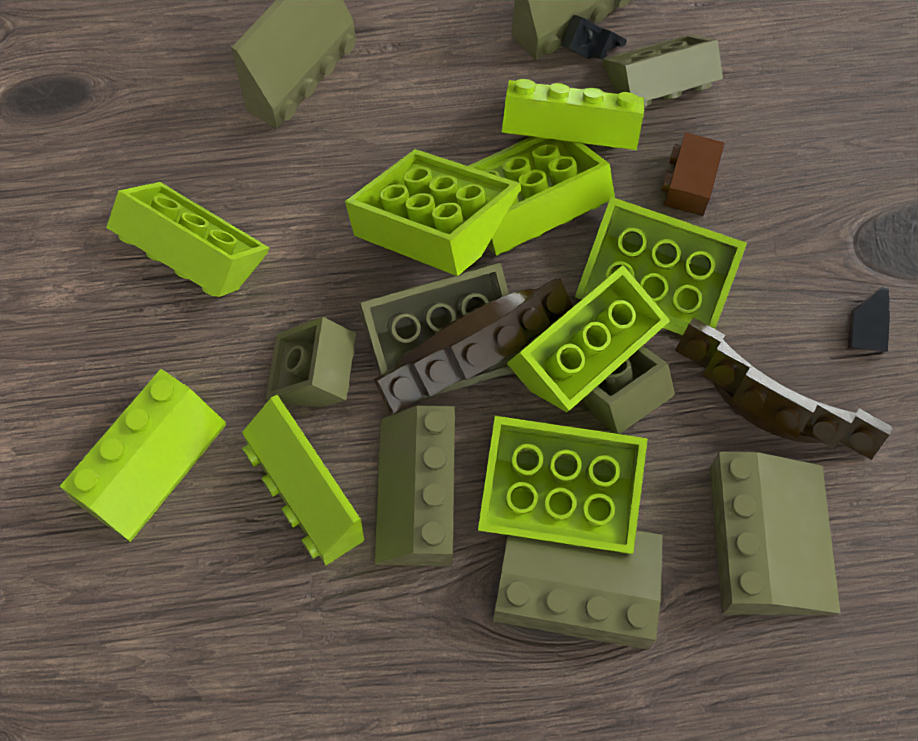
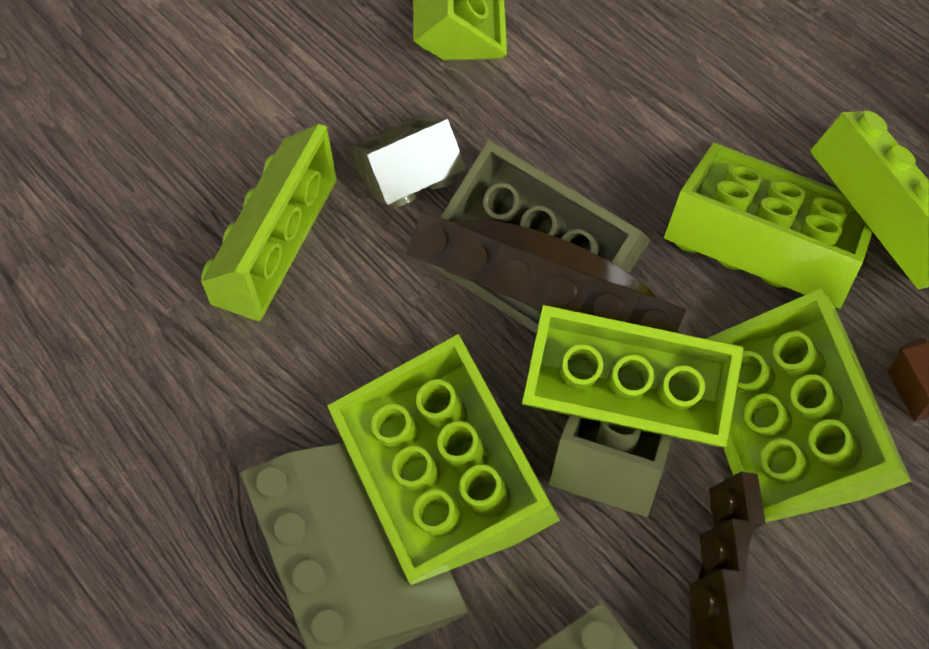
camera: 60 degrees right, 5 degrees down
(144, 455) = (213, 87): lime slope -> none
(416, 487) = (346, 332): olive slope -> none
(432, 210) = (653, 141): lime slope -> none

